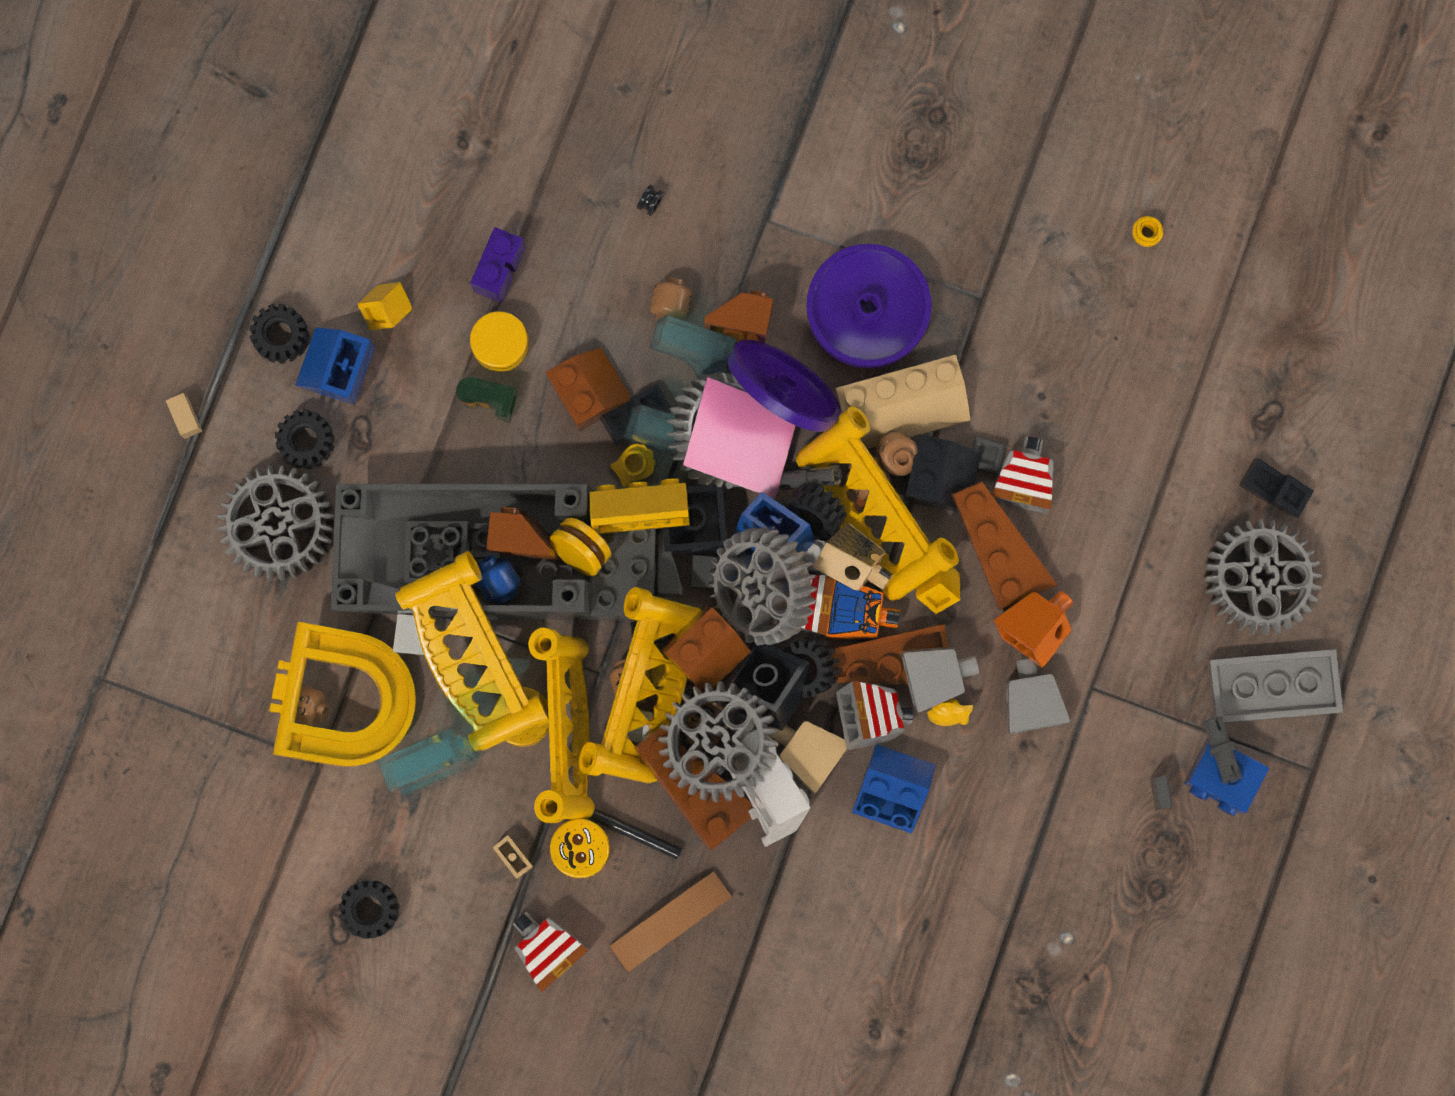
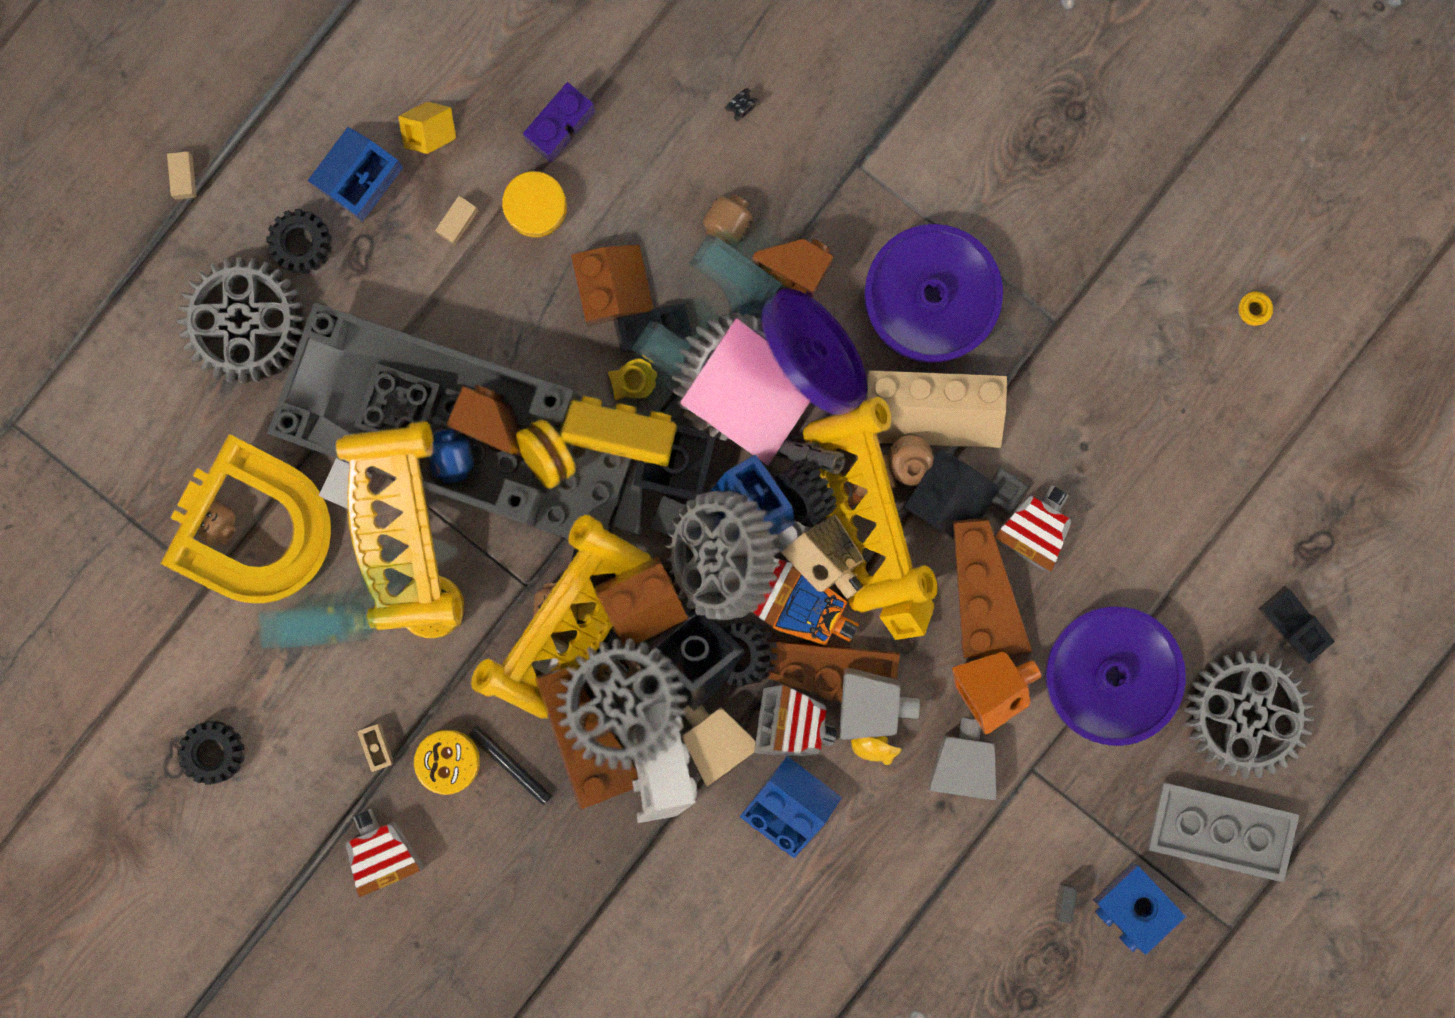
camera: 20 degrees right, 5 degrees up
(279, 315) = (303, 100): black tyre -> none
(436, 377) = (456, 220): none -> tan piece
(482, 393) = (496, 252): clear green leg -> none
(561, 654) = (489, 557): yellow piece -> none
(670, 921) = (516, 867): medium nougat slope -> none
(1136, 581) = (1115, 676): none -> dark purple dish
(1222, 750) = (1143, 883): dark grey pin -> none

